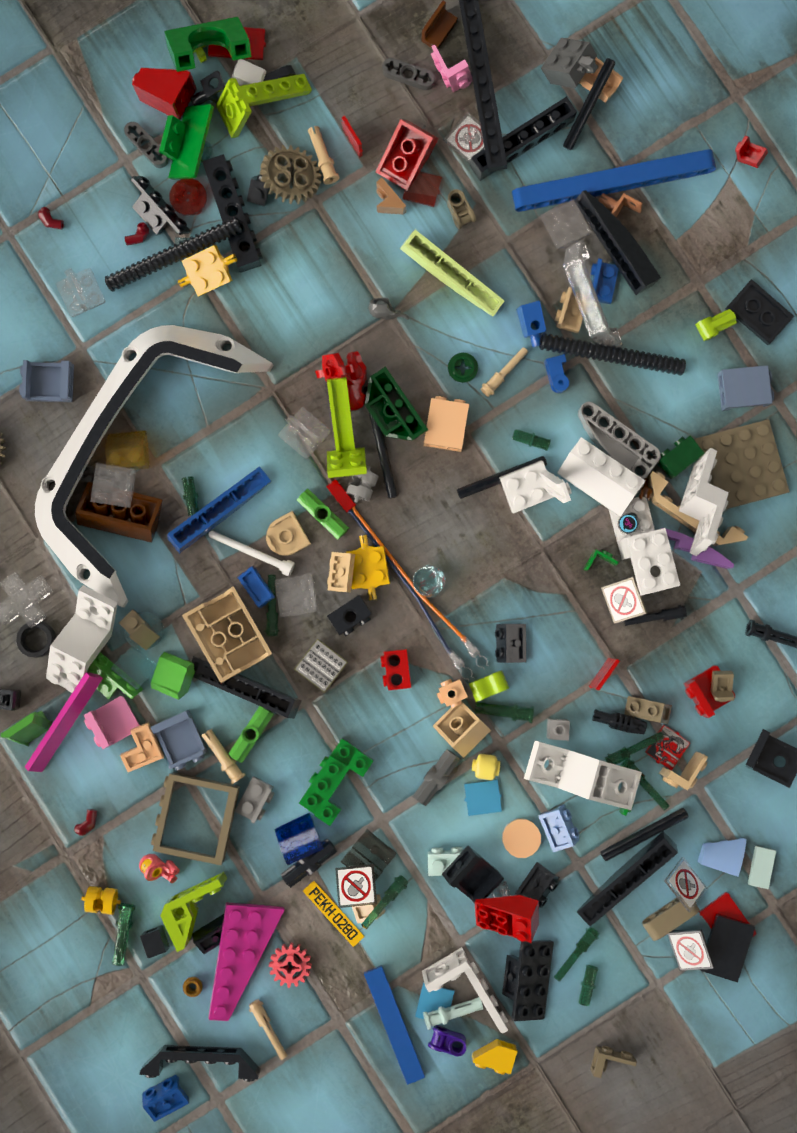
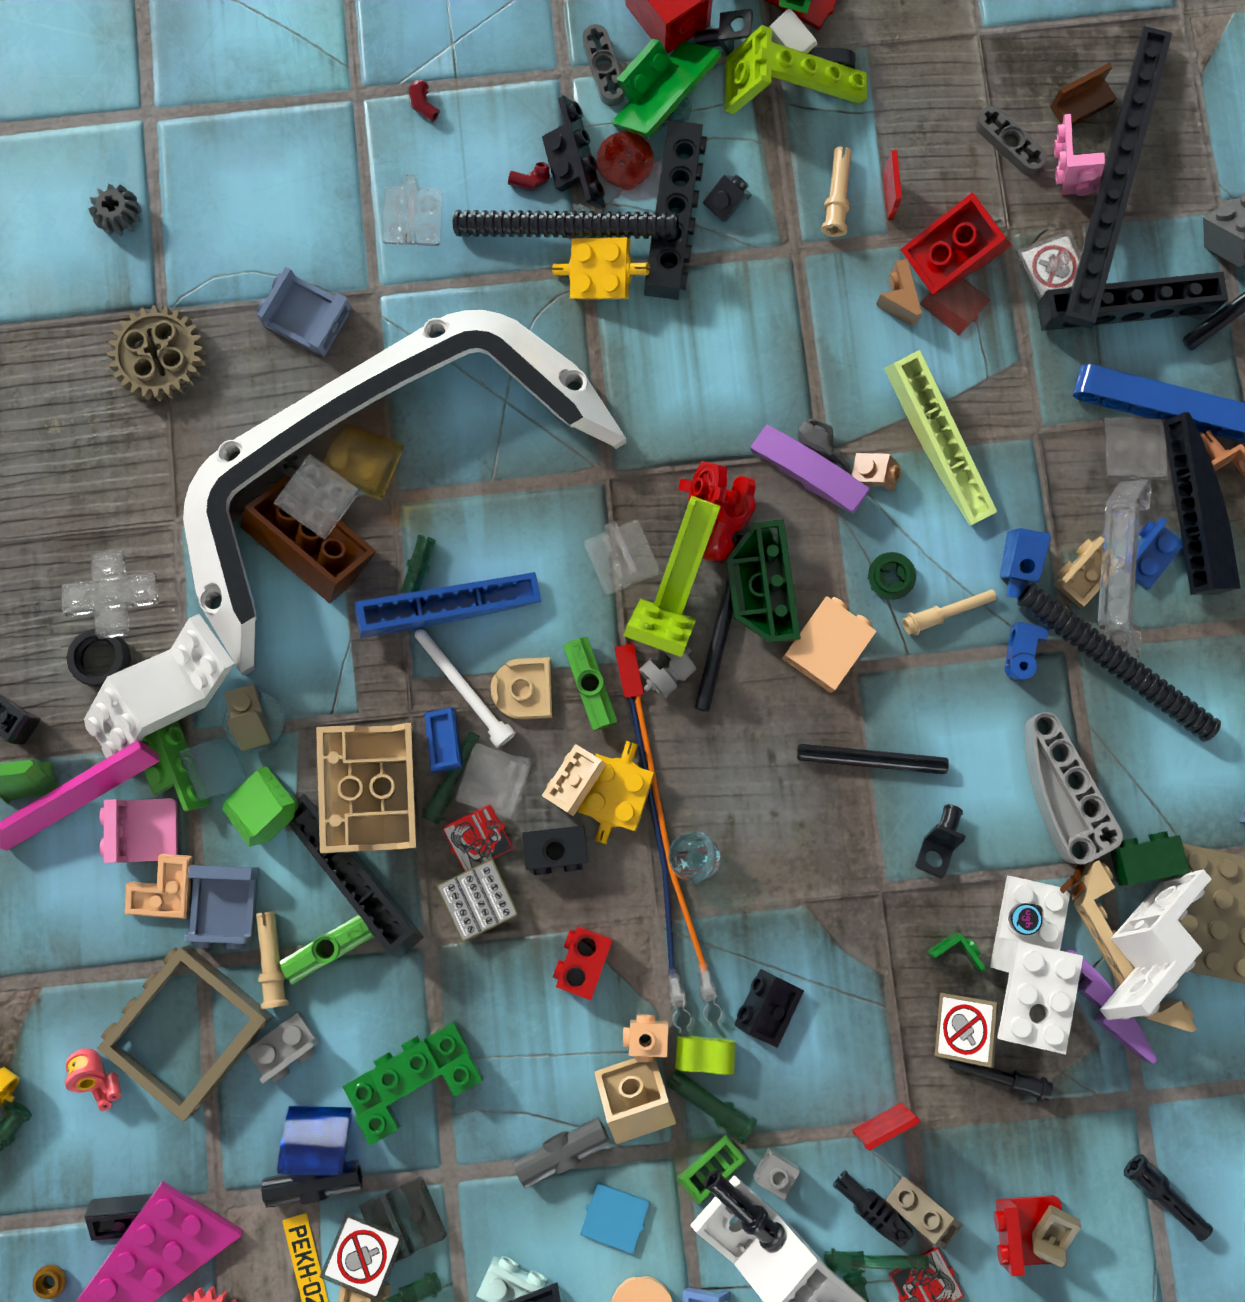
camera: 25 degrees right, 5 degrees down
(88, 824) = (29, 961): dark red arm -> none
(154, 941) = (30, 1185): black panel -> none
(181, 910) = (83, 1169): lime bracket -> none
(303, 631) = (477, 837): none -> piece
(307, 175) = (762, 187): dark tan gear -> none
(386, 328) = (810, 469): none -> medium lavender slope
(424, 311) = (877, 470): none -> bracket
(460, 212) = (995, 360): dark tan piece -> none
(486, 767) = (642, 1175): light yellow head -> none
(521, 763) = (684, 1178): none -> bright green slope
(531, 439) = (941, 726): clear green axle -> none
(532, 486) = (915, 795): white bracket -> none
(556, 757) = (762, 1227): none -> black pin
(558, 506) = (943, 840): none -> black bracket
(601, 477) = (1018, 831): white slope -> none

